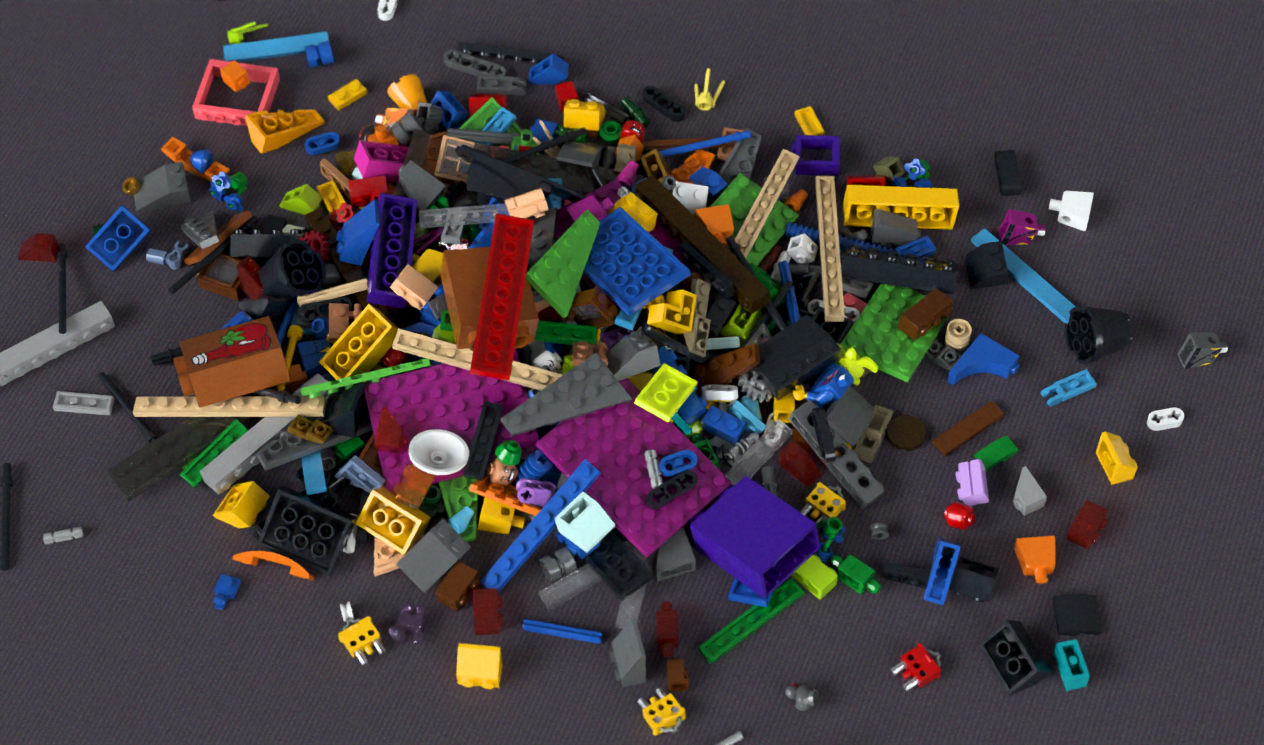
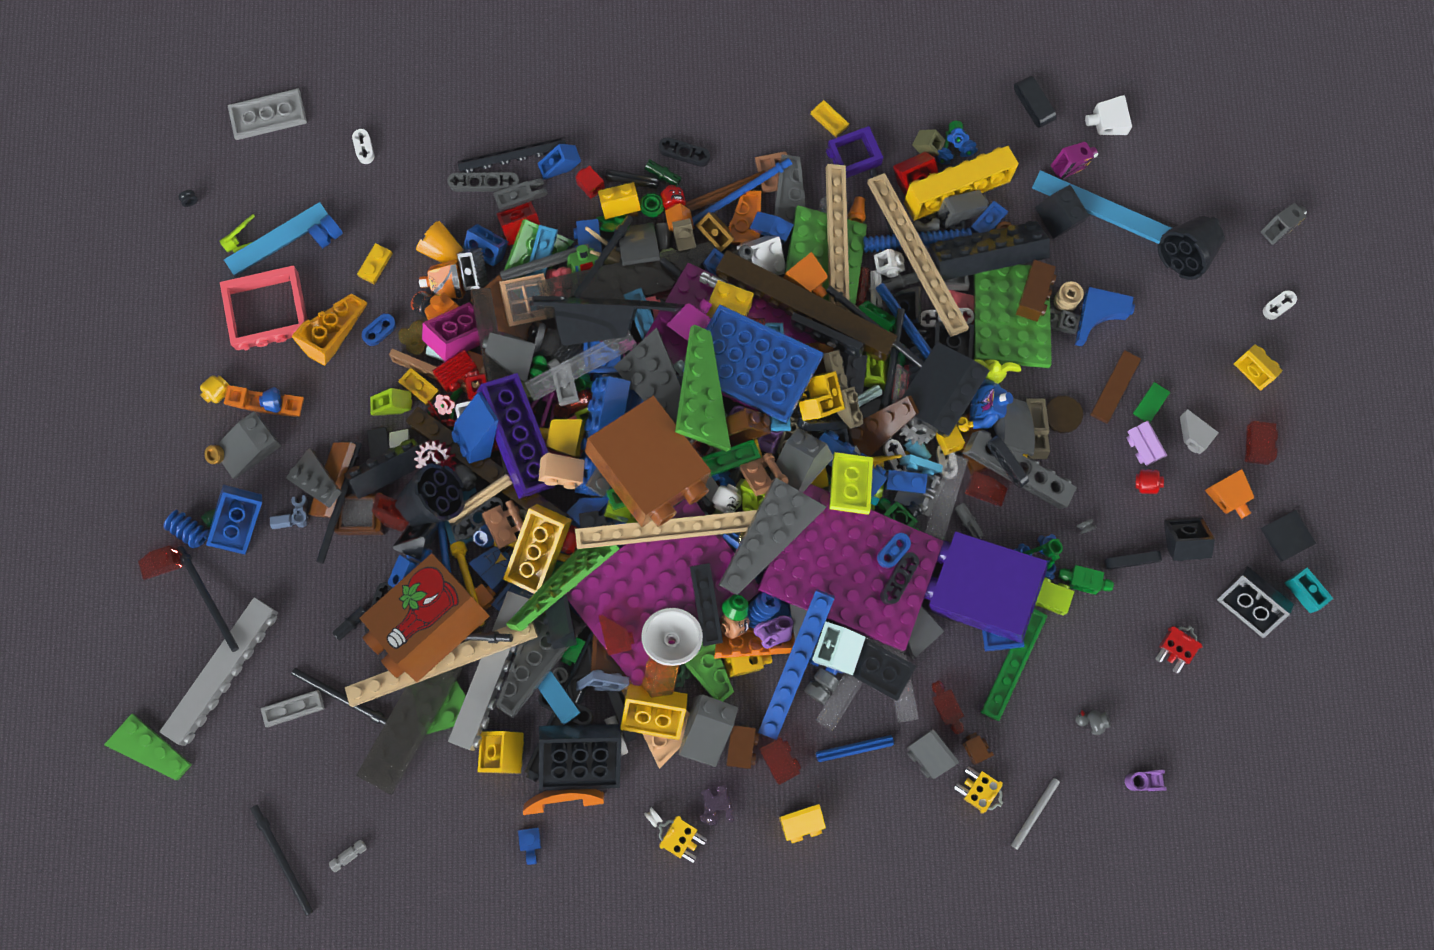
camera: 25 degrees left, 20 degrees up
(74, 230) = (185, 529): none -> blue piece
(158, 136) = (214, 389): none -> yellow head
(219, 445) = (449, 712): green tile -> none
(235, 76) = (257, 294): orange brick -> none
(236, 182) = (308, 419): blue plant -> none
(310, 431) = (533, 658): pearl gold slope -> none
(404, 130) = (459, 288): dark grey wheel -> none
(461, 519) = (715, 686): medium azure cone -> none
(502, 297) = (669, 466): red plate -> none
(527, 204) = (631, 342): light nougat brick -> none
(628, 174) = (696, 253): dark pink cone -> none
(653, 468) = (874, 565): light grey axle -> none
(705, 100) = (722, 134): light yellow plant -> none
(720, 392) = (889, 451): white beam -> none
(824, 502) = (1027, 513): yellow piece -> none
(942, 569) = (1164, 542): blue arch -> none
(1069, 387) = (1186, 306): dark azure hinge -> none

